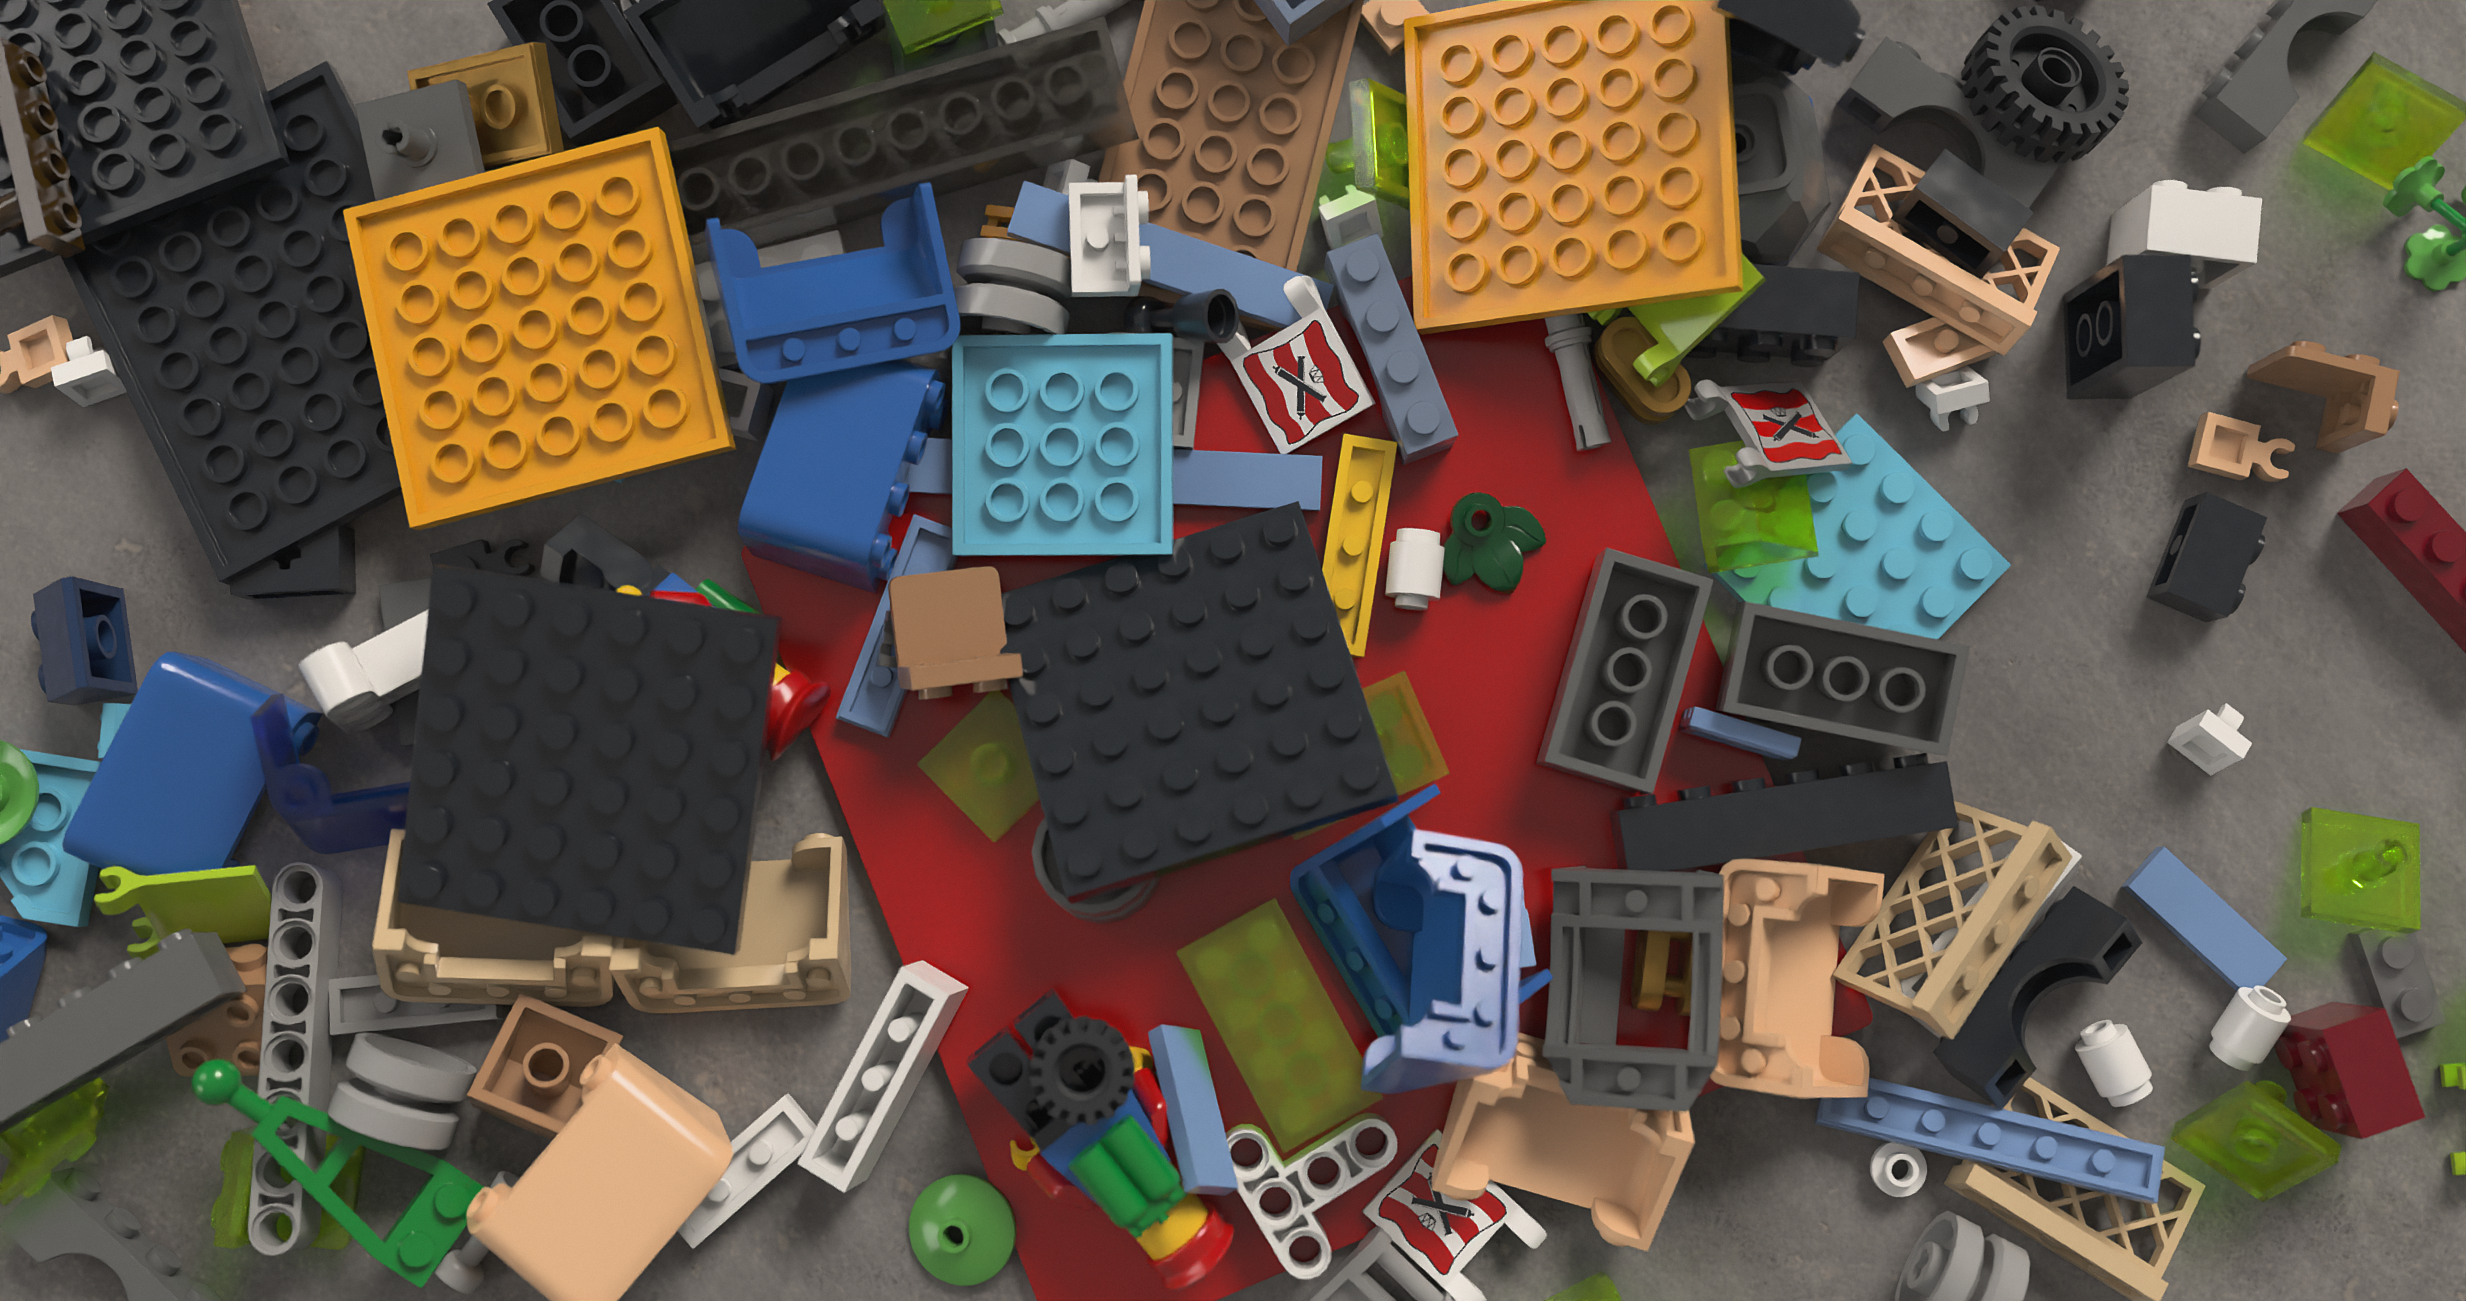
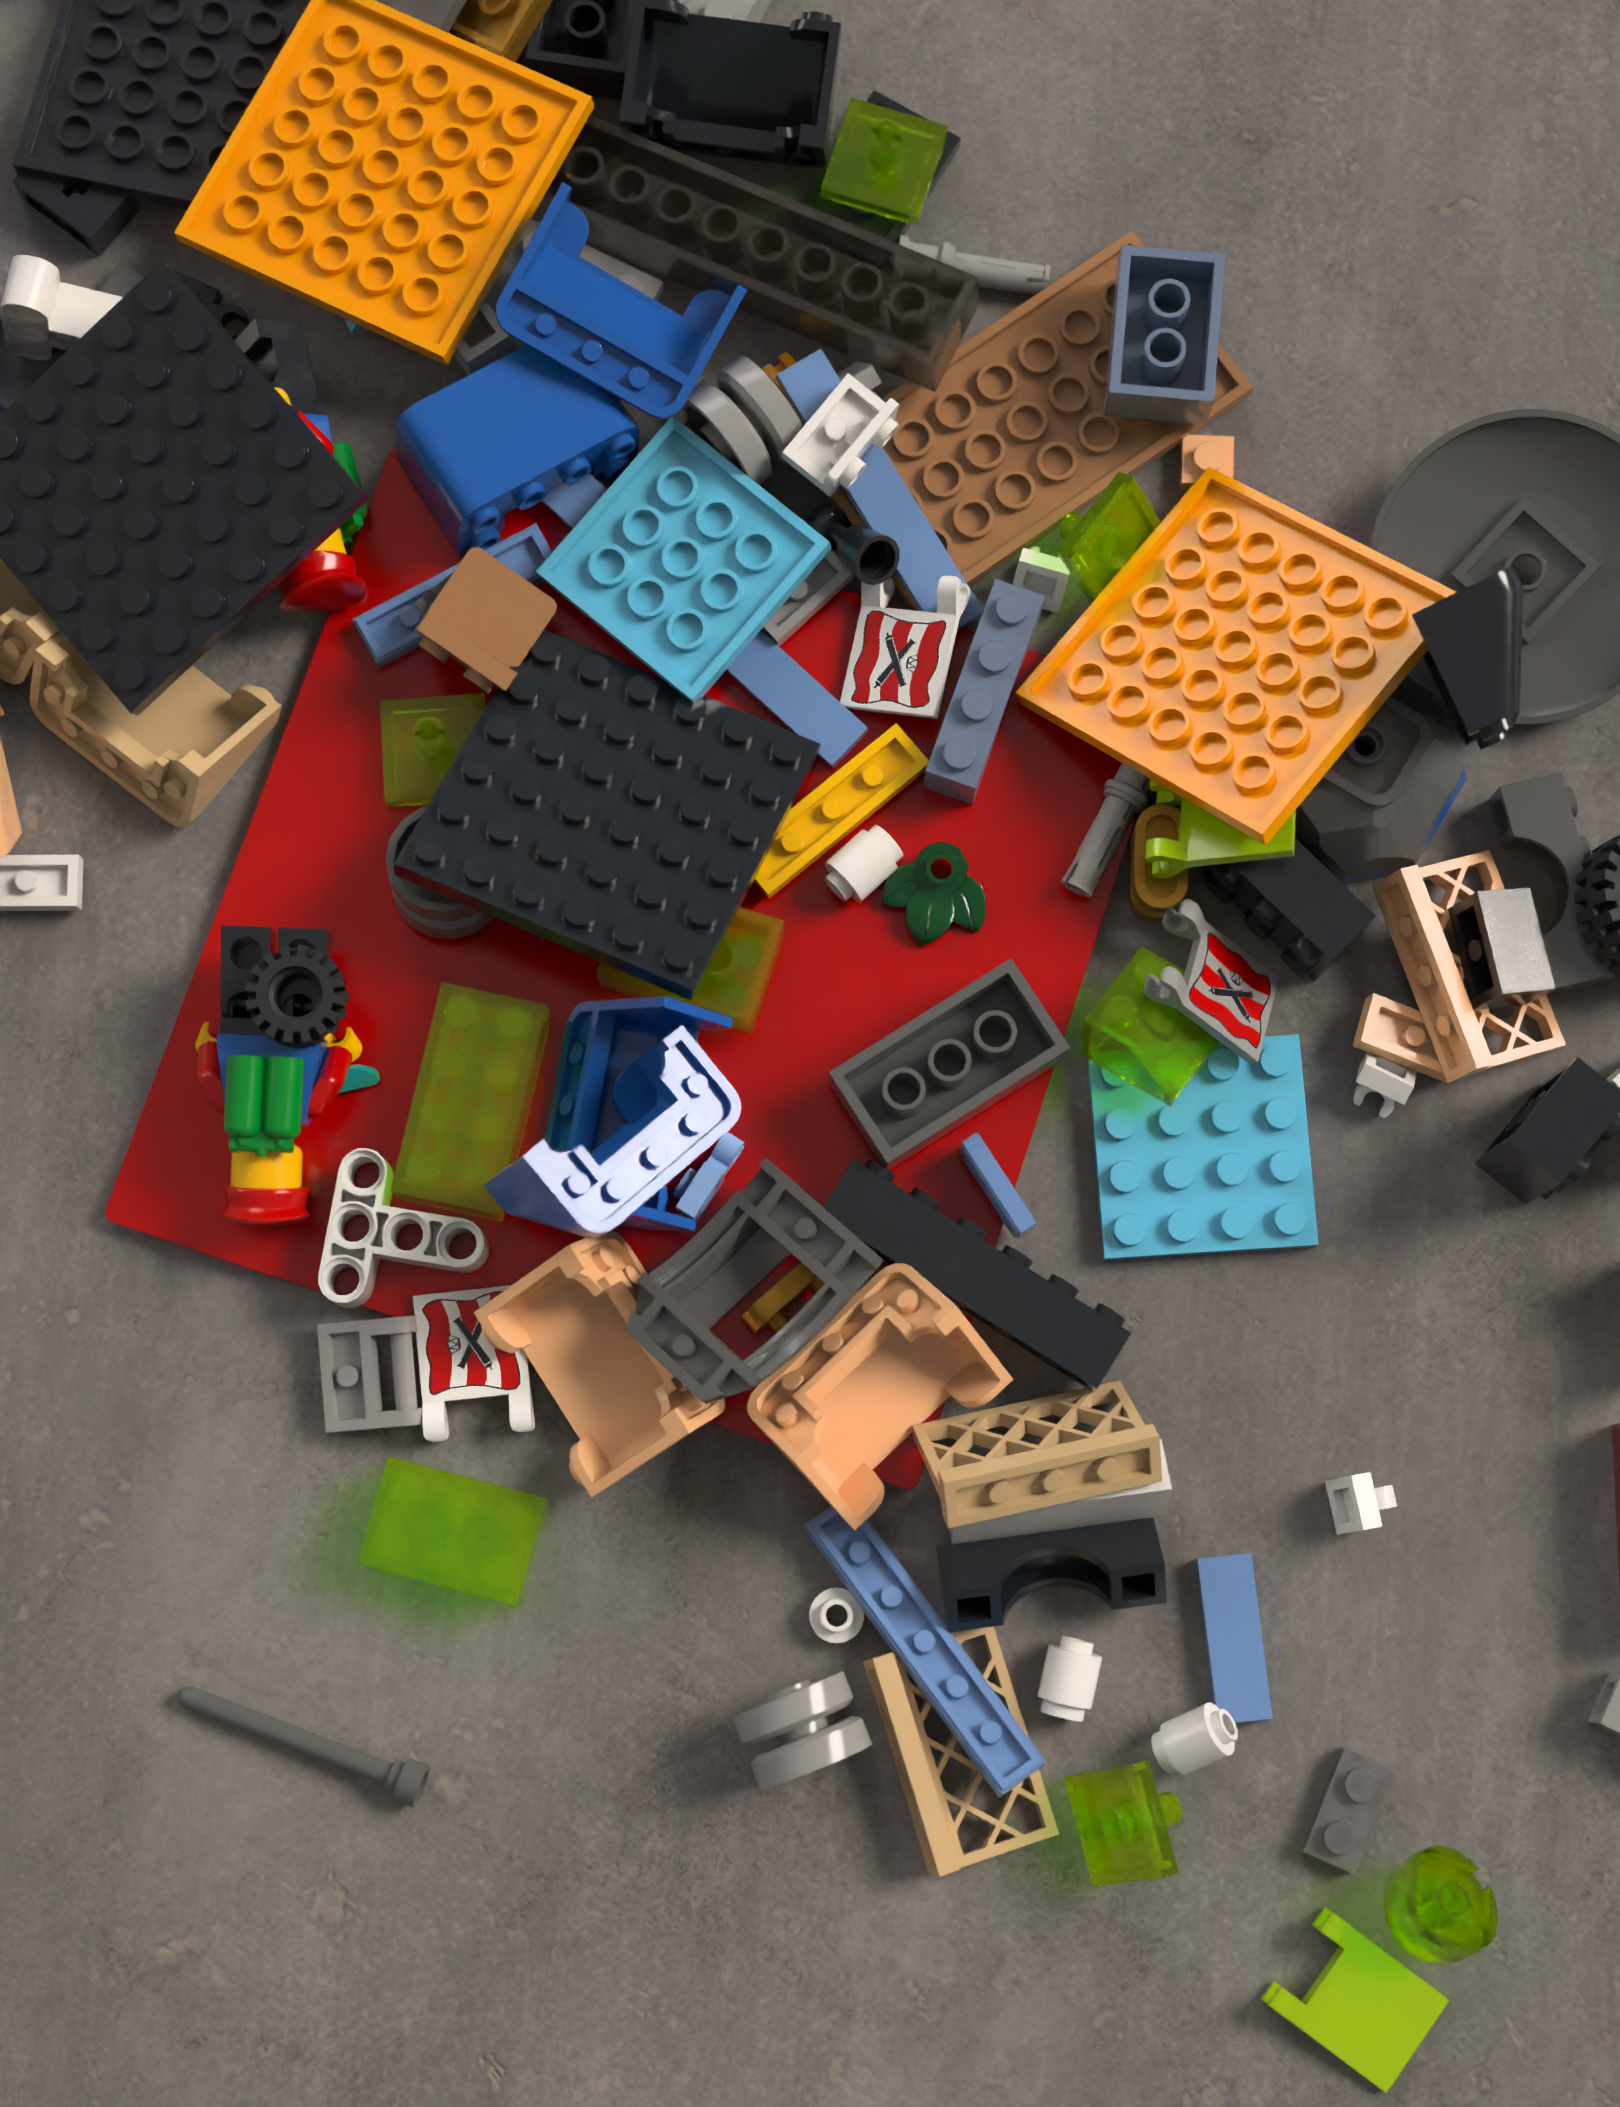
camera: 45 degrees right, 5 degrees down
(883, 1075) = (159, 895): white brick -> none
(981, 1215) = (134, 1073): bright green dish -> none
(1192, 1110) = (353, 1105): medium blue tile -> none
(1842, 678) = (1105, 1204): dark grey brick -> none
(2208, 558) = (1475, 1366): black brick -> none
(2231, 449) = (1567, 1300): light nougat plate -> none
(2348, 1070) = (1237, 1830): dark red brick -> none
(2360, 870) = (1388, 1701): clear neon green tile -> none

